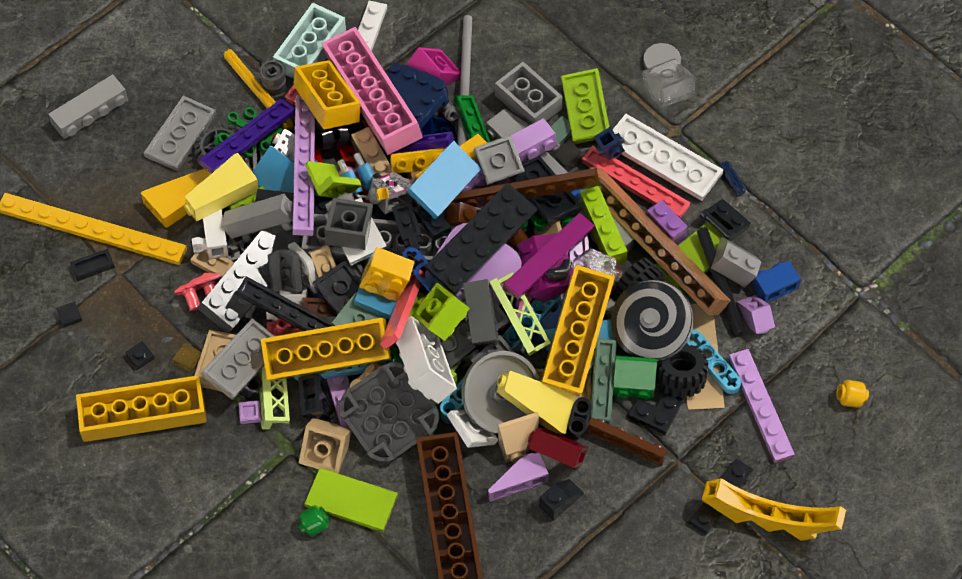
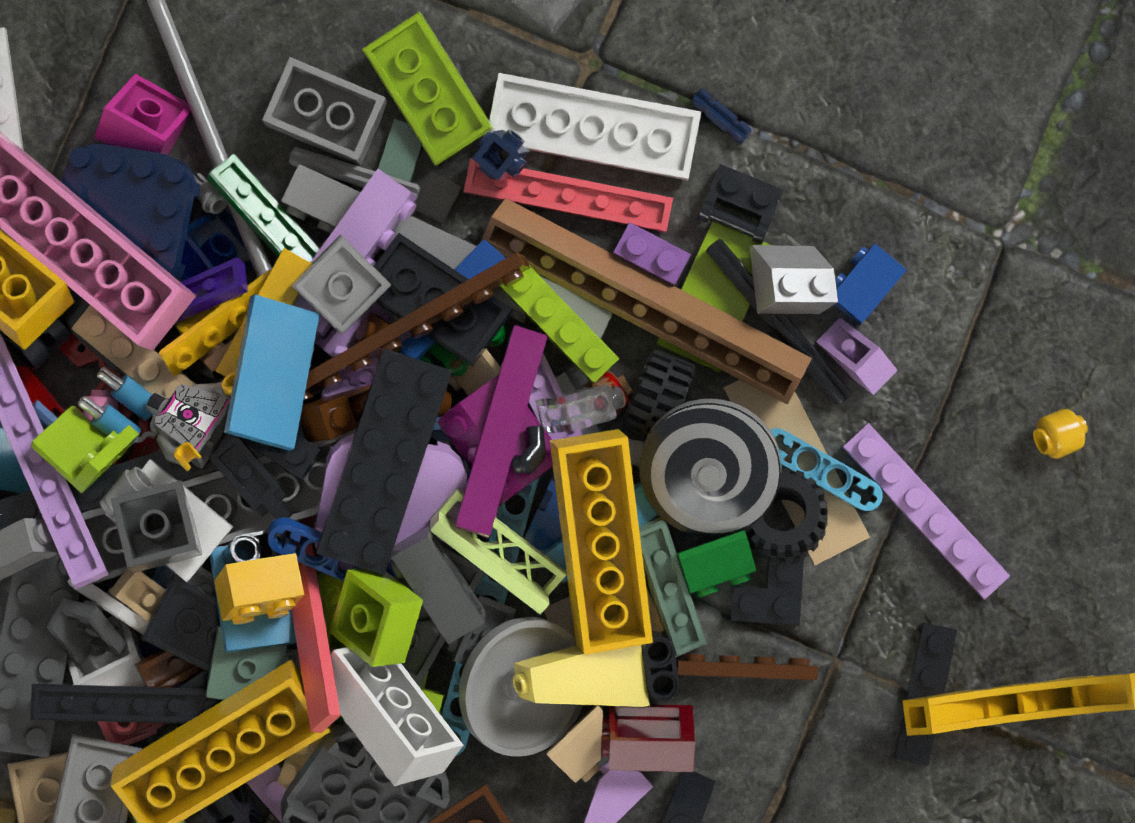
camera: 25 degrees left, 25 degrees up
(469, 432) = (500, 772): white plate -> none

